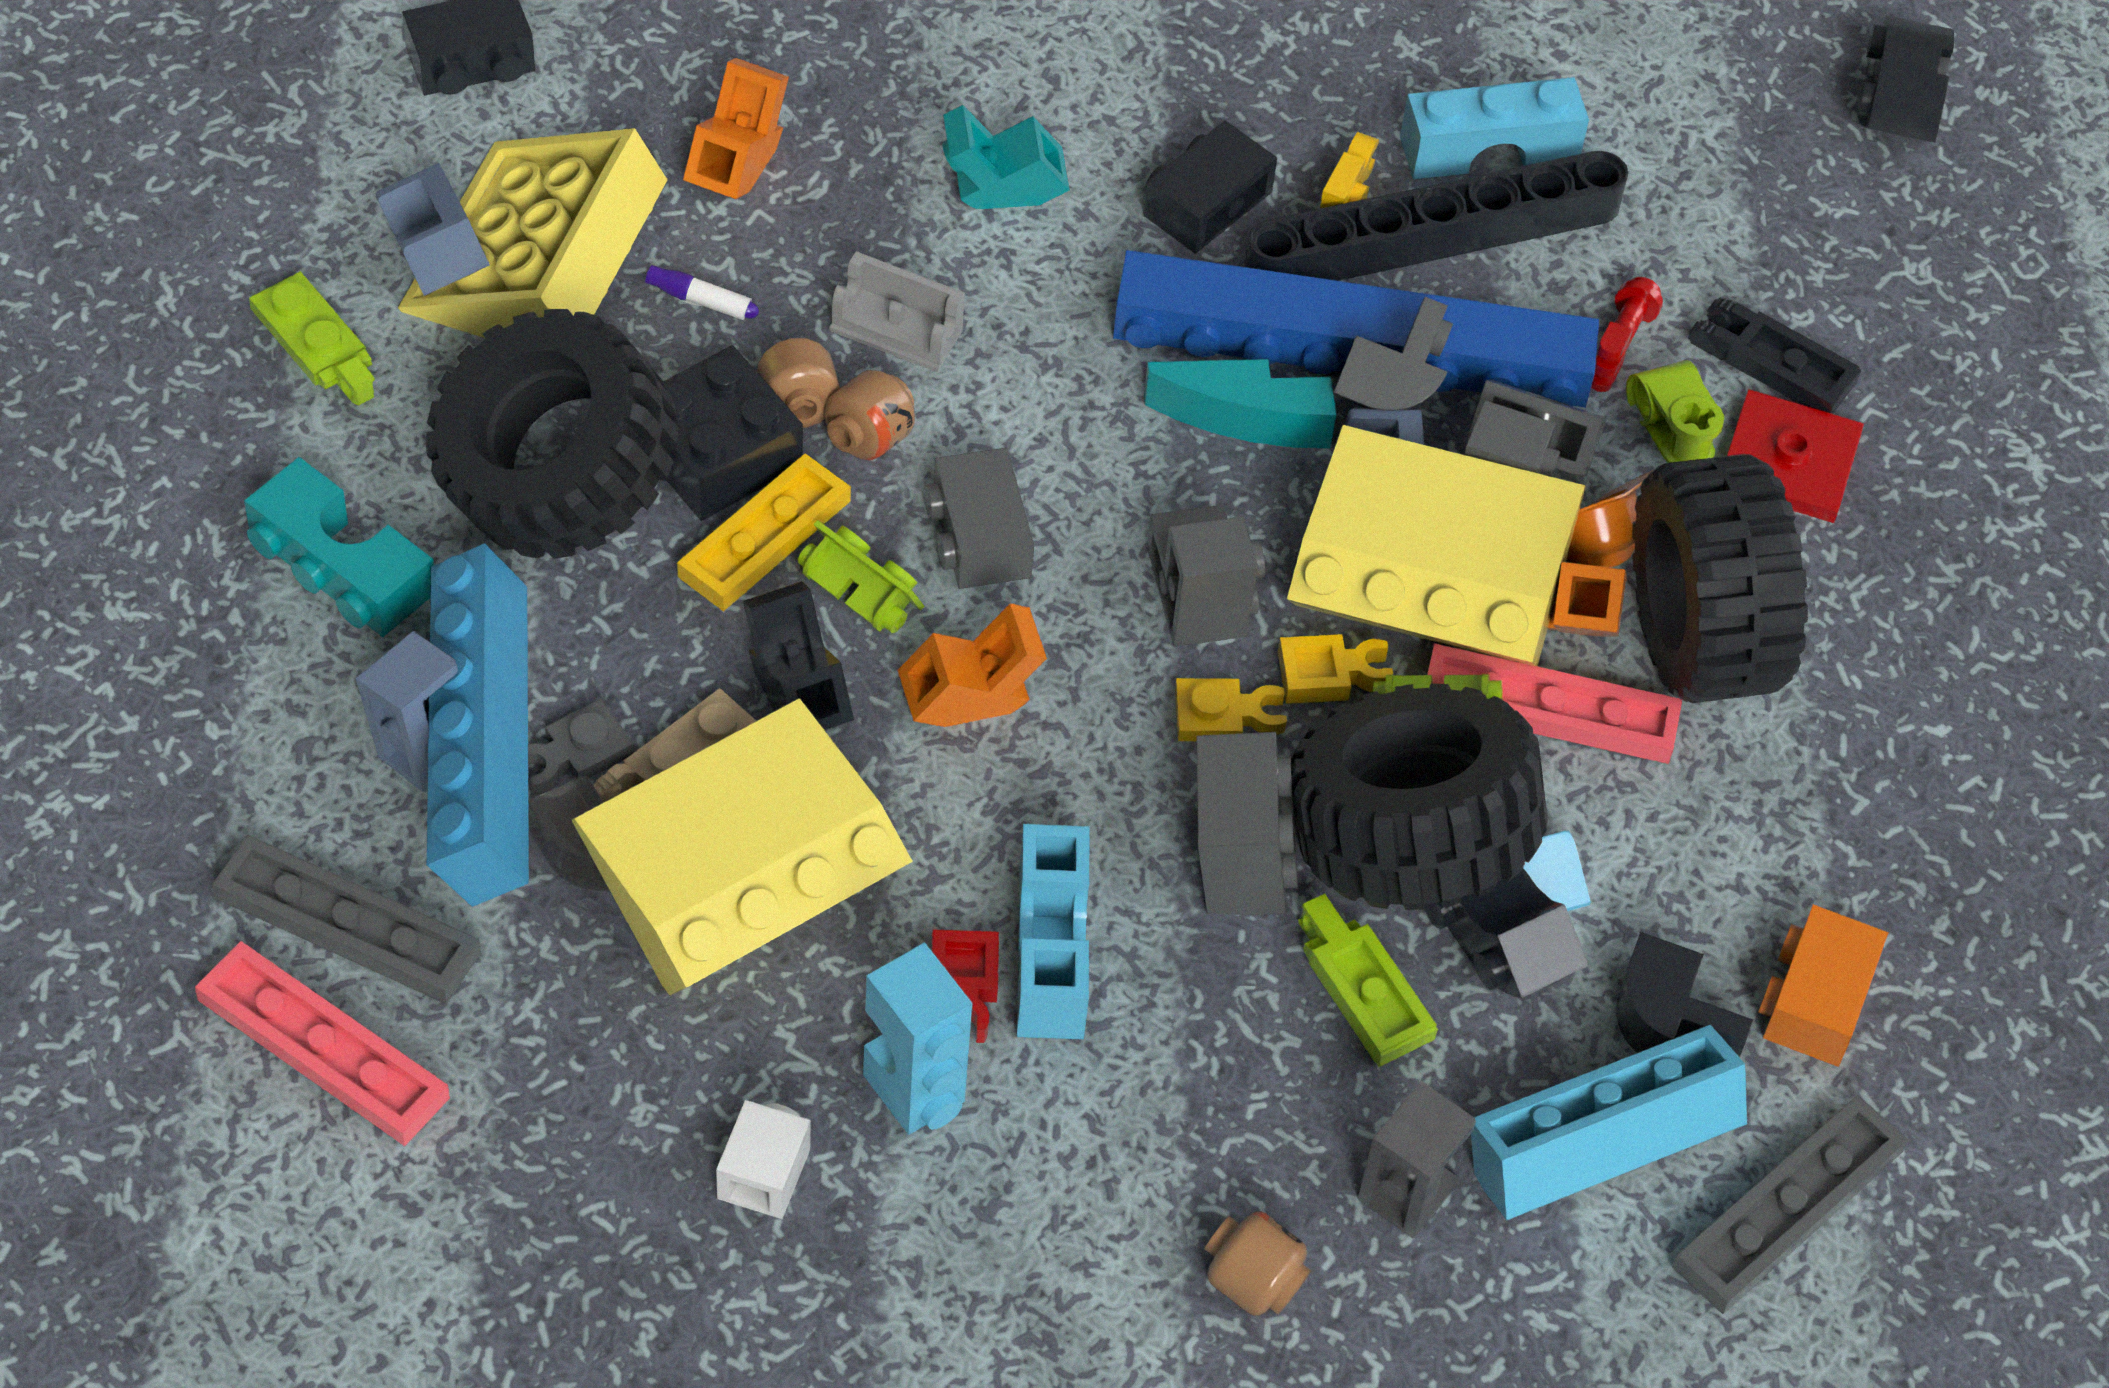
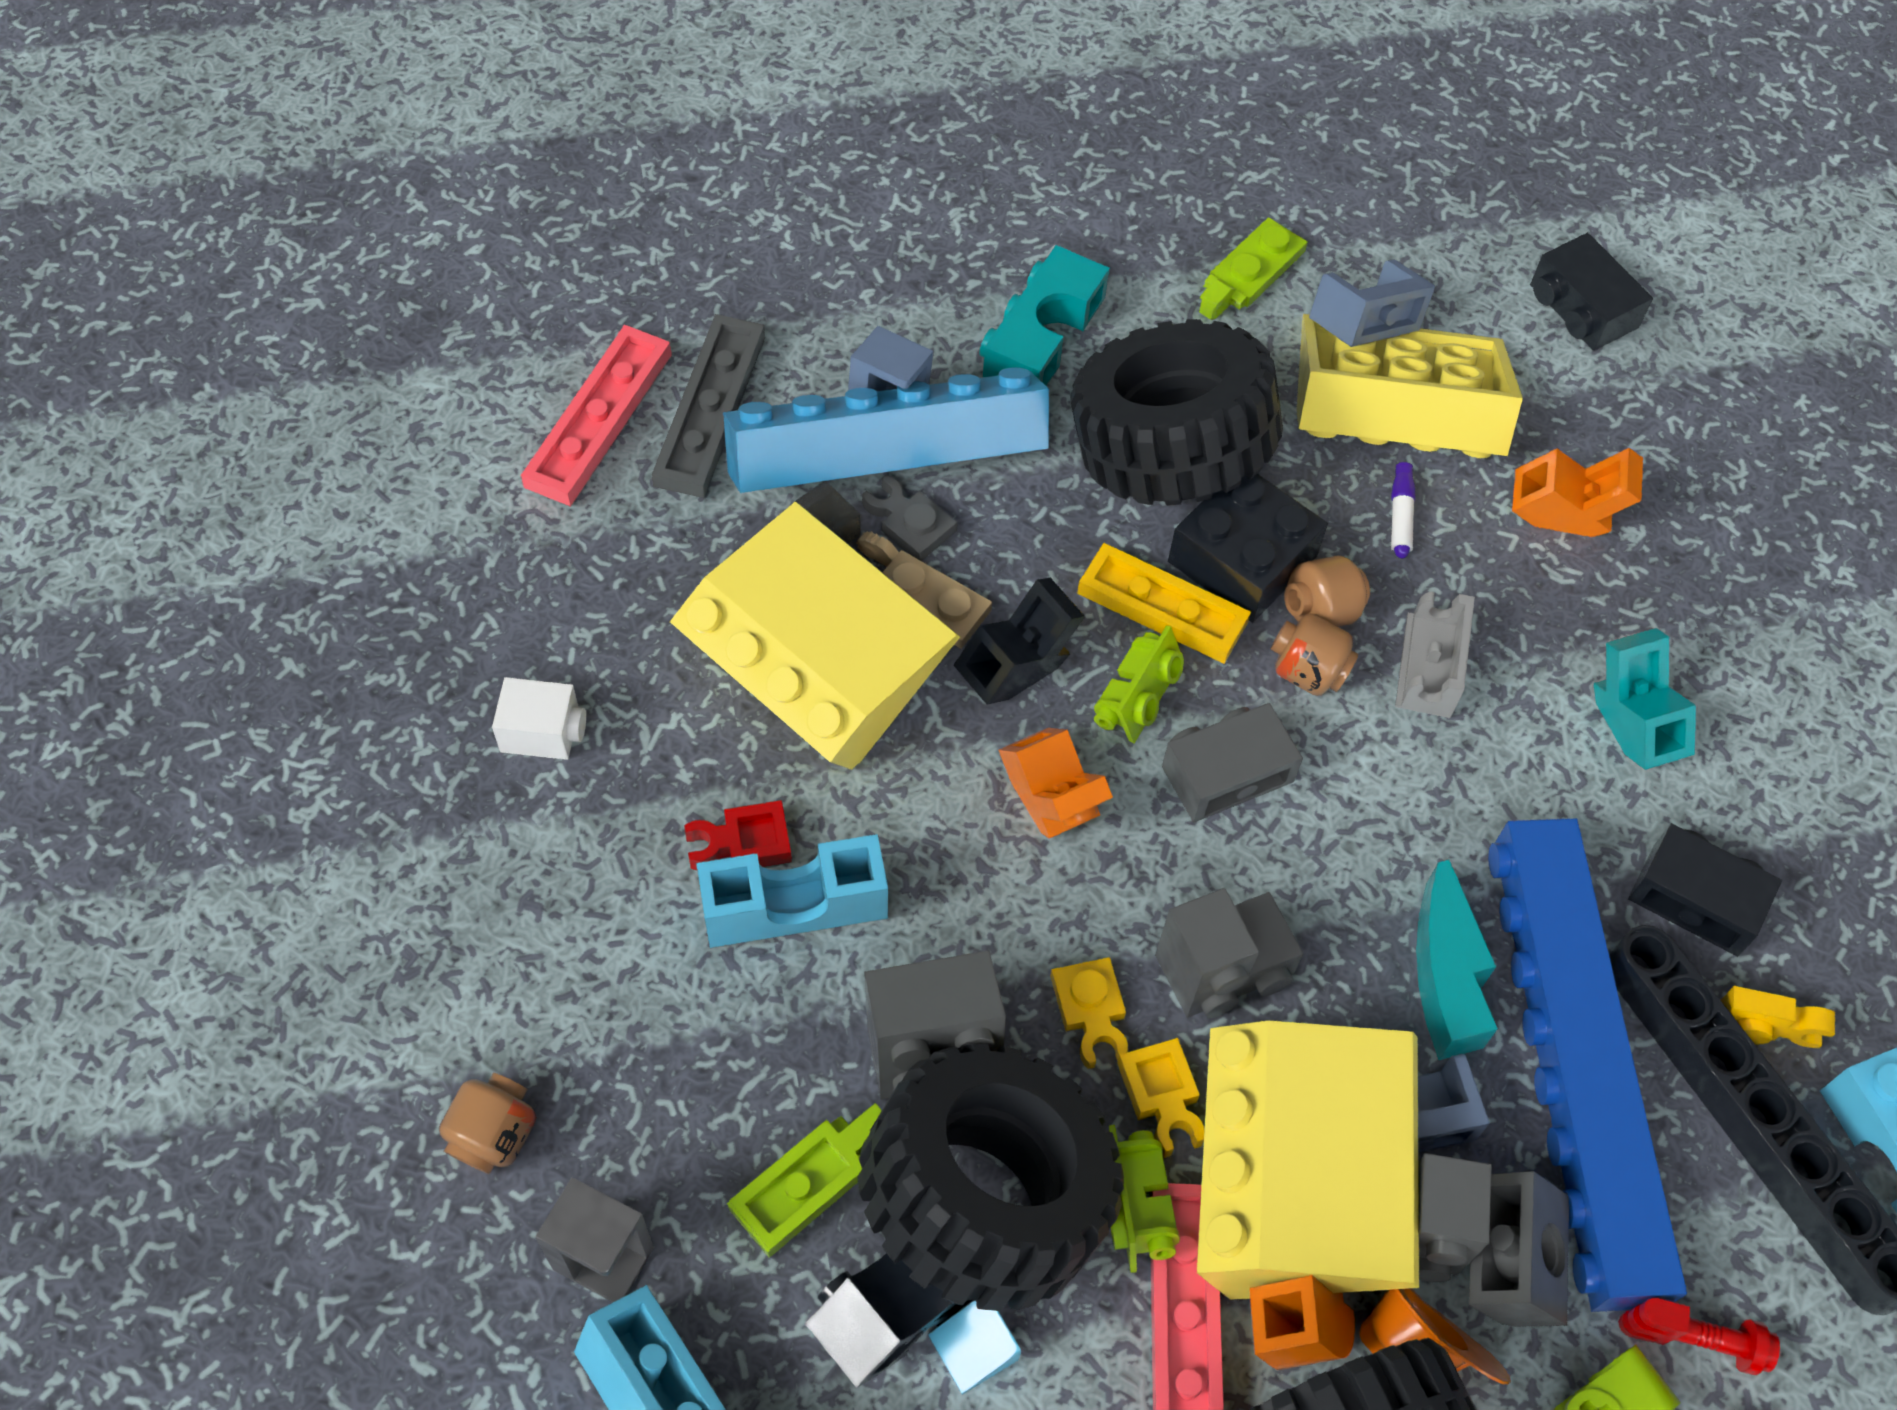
camera: 80 degrees right, 5 degrees up
(924, 1043) = (624, 785): medium azure arch -> none
(1395, 380) = (1518, 1086): dark grey brick -> none

